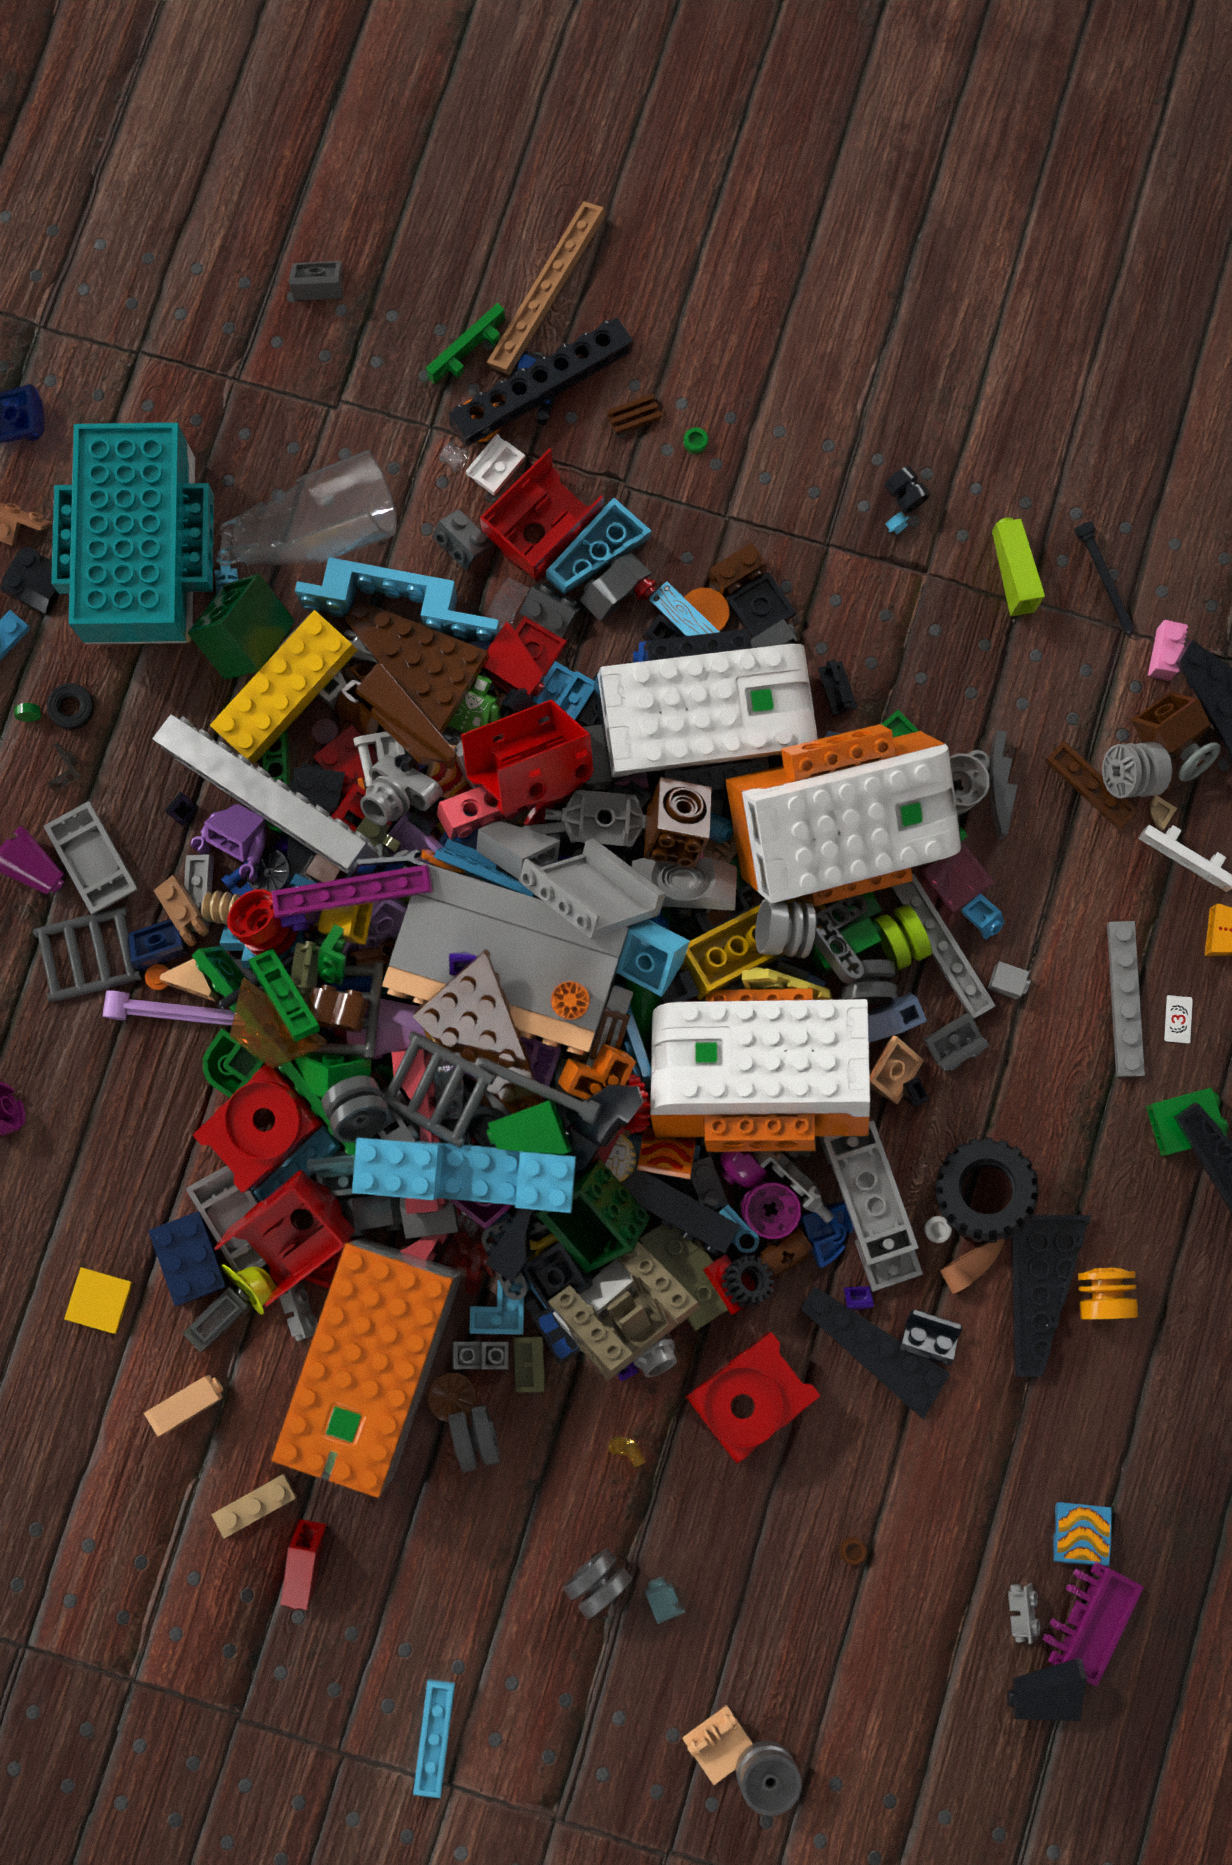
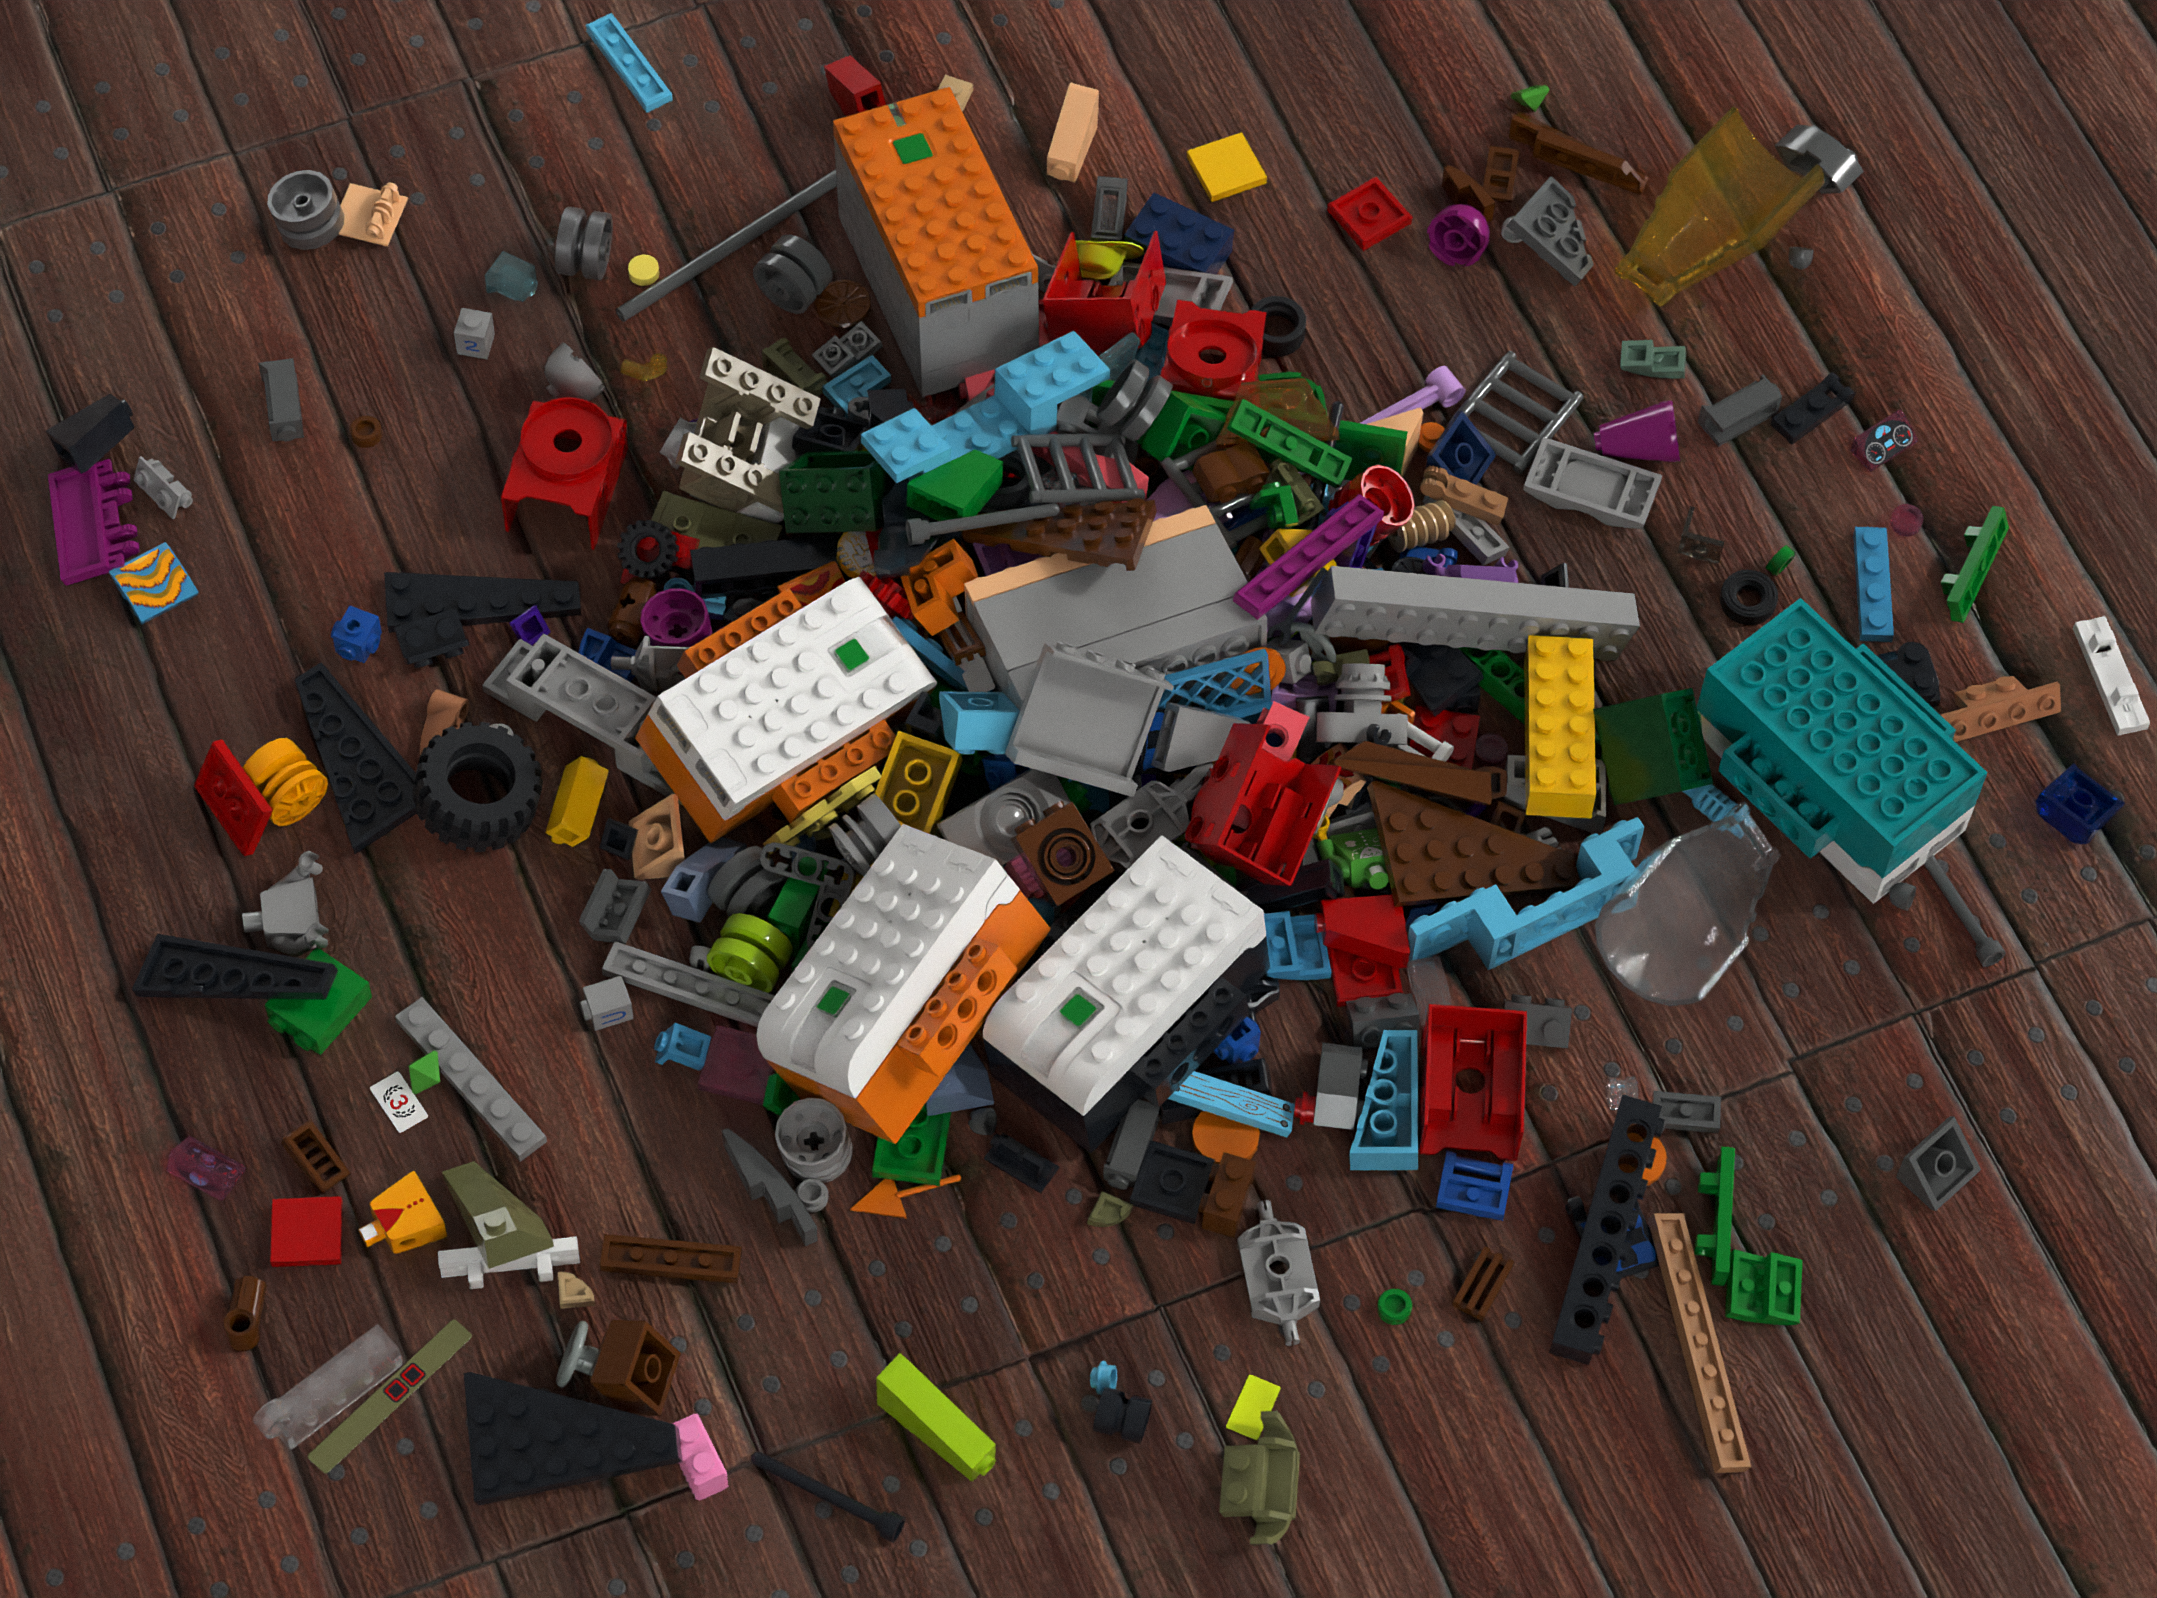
camera: 140 degrees right, 20 degrees down
(37, 1184) = (1369, 213): none -> red tile
(159, 376) = (1988, 950): none -> dark grey piece
(161, 1141) = (1290, 310): none -> black tyre
(427, 418) = (1689, 1111): none -> dark grey hinge
(459, 961) = (1150, 564): dark purple slope -> none
(461, 1510) = (727, 247): none -> dark grey piece
(479, 289) = (1764, 1288): none -> green slope
(495, 464) = (1573, 1118): white plate -> none
(565, 1537) = (643, 270): none -> light yellow tile
(570, 1000) = (1019, 603): orange wheel -> none
(594, 465) = (1473, 1194): none -> blue plate
(687, 1476) = (570, 376): none -> light grey cylinder
(724, 1571) = (474, 333): none -> light grey brick
(742, 527) = (1273, 1296): none -> light grey plate
(810, 621) = (1109, 1211): none -> olive tile
(823, 448) = (1254, 1398): none -> neon yellow sticker
(840, 726) = (983, 1121): none -> dark grey hinge
(859, 396) = (1263, 1480): none -> olive plate
(895, 1619) = (282, 399): none -> dark grey window
(925, 968) = (698, 957): none -> light grey hinge
(925, 1136) = (576, 801): none -> yellow brick
(933, 726) = (886, 1199): none -> orange piece
(970, 1377) = (356, 634): none -> blue brick
(1137, 770) = (636, 1284): light grey wheel -> none
(1148, 1309) = (233, 797): none -> red tile
(1153, 1022) = (424, 1072): none -> bright green slope
(1164, 1195) = (291, 911): none -> light grey torso
(1182, 884) = (495, 1217): none -> olive wedge

